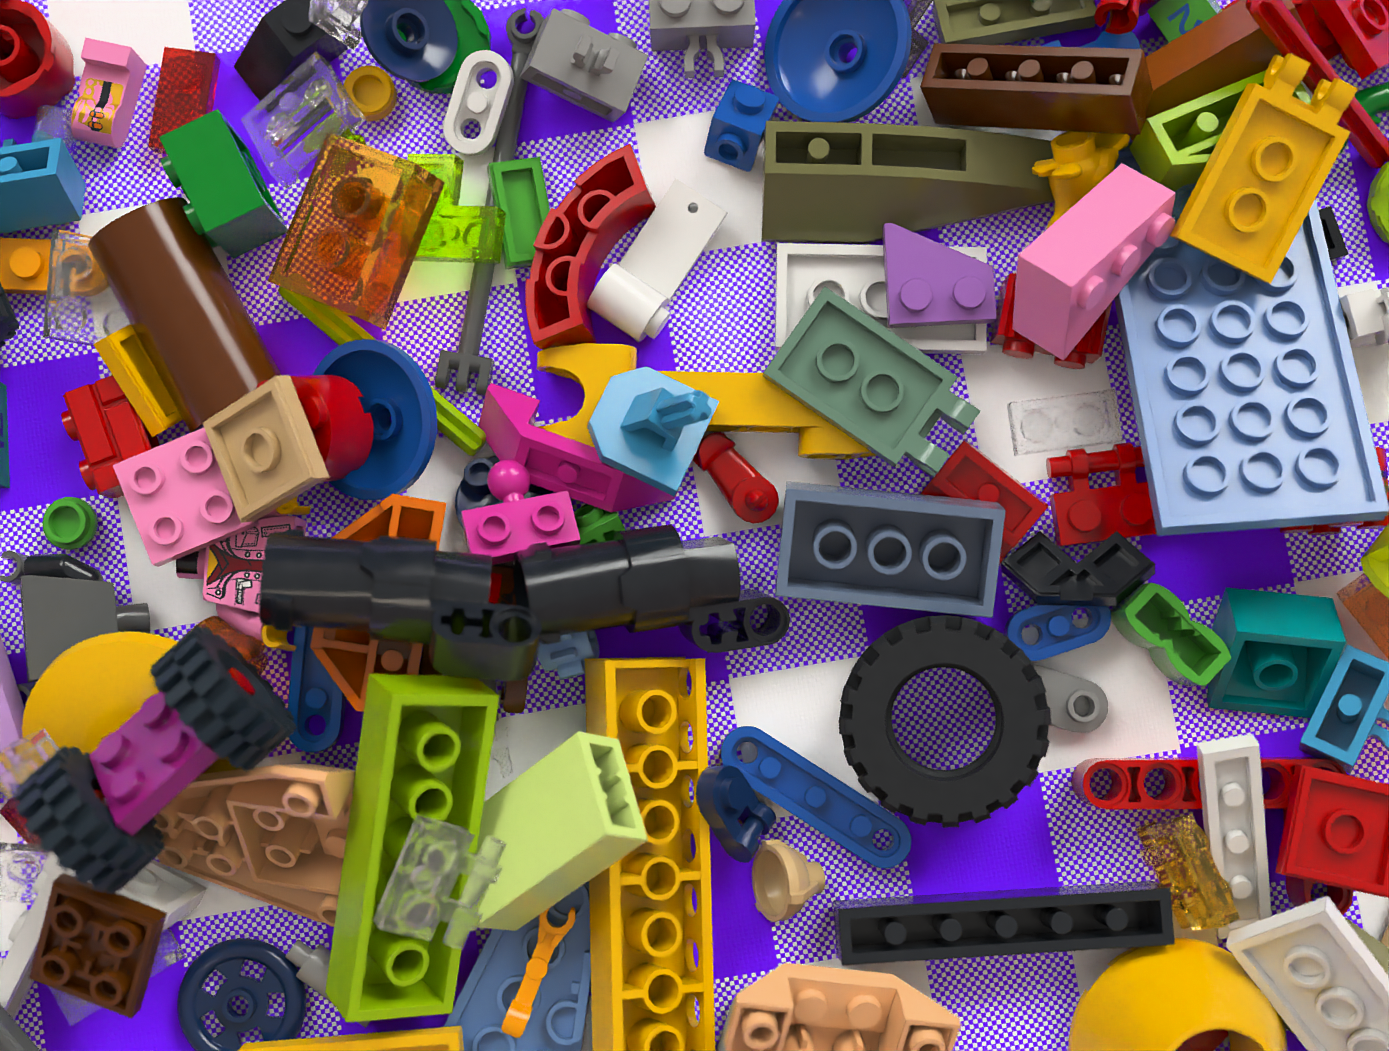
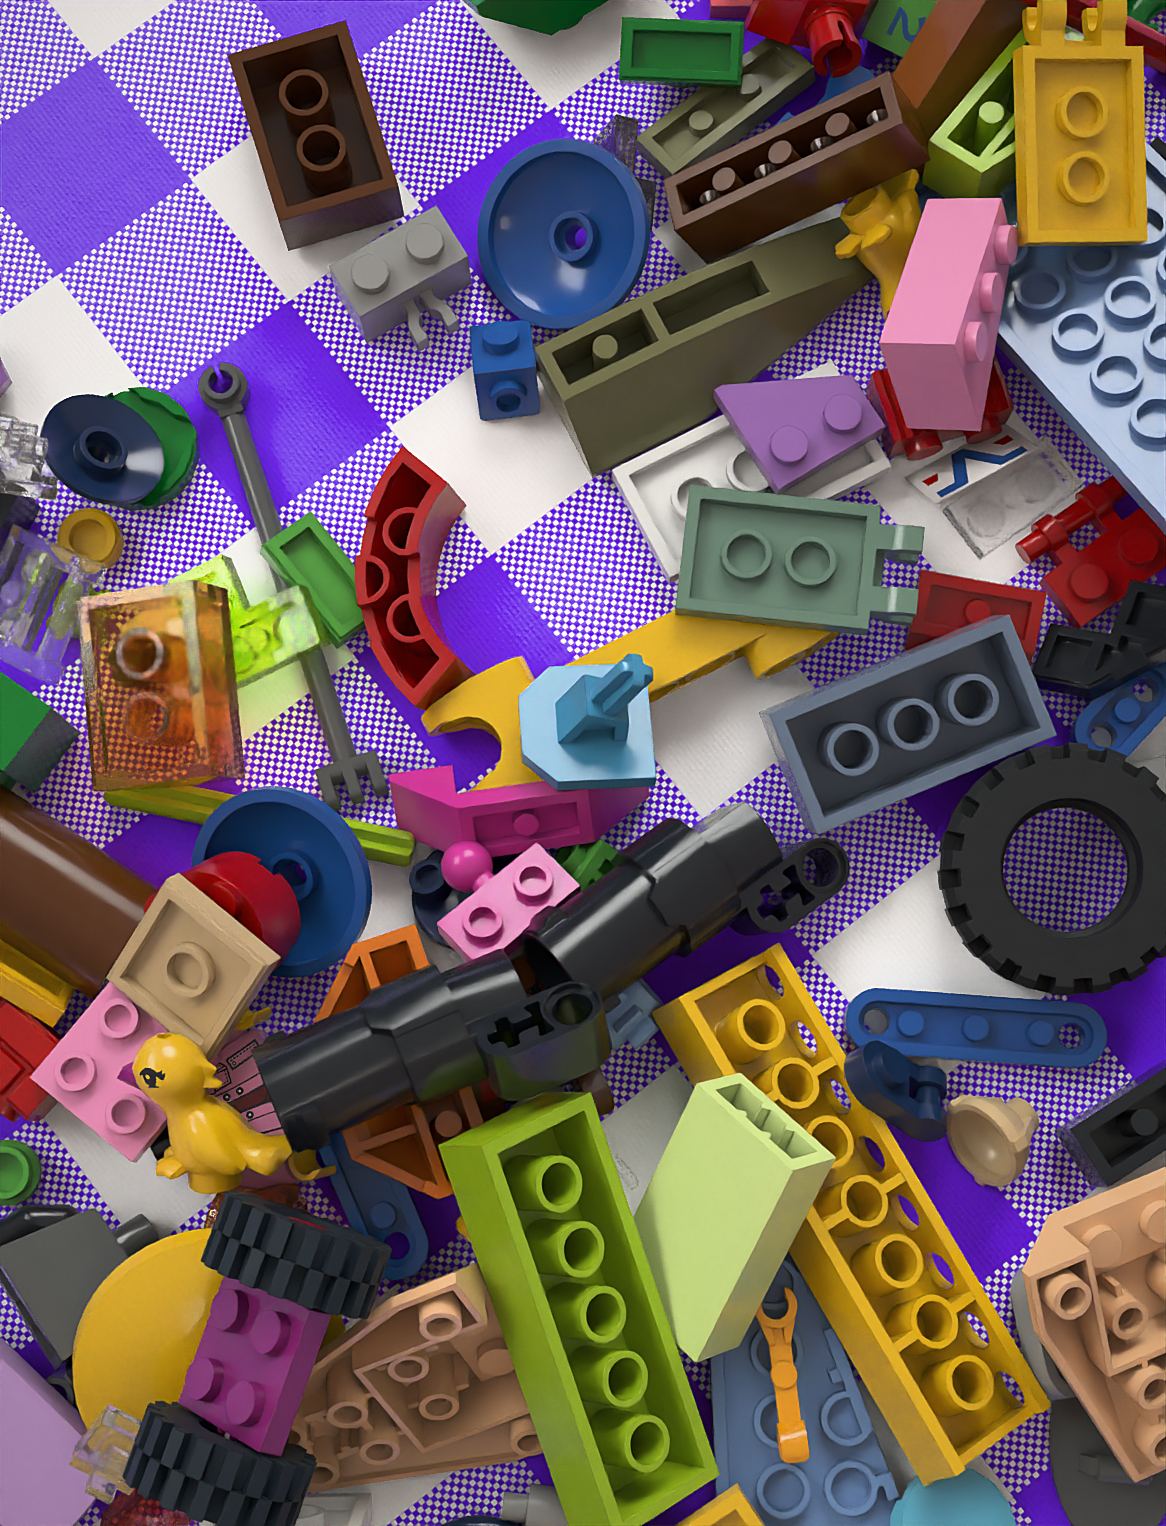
camera: 25 degrees left, 5 degrees down
(213, 572) = (204, 1132): none -> yellow animal
(425, 877) = (618, 1331): clear plate -> none
(474, 103) = (214, 490): white plate -> none
(584, 64) = (307, 390): light grey brick -> none
(657, 262) = (495, 556): white door -> none
(743, 487) = (715, 743): red piece -> none
(1046, 380) = (970, 464): none -> white sticker

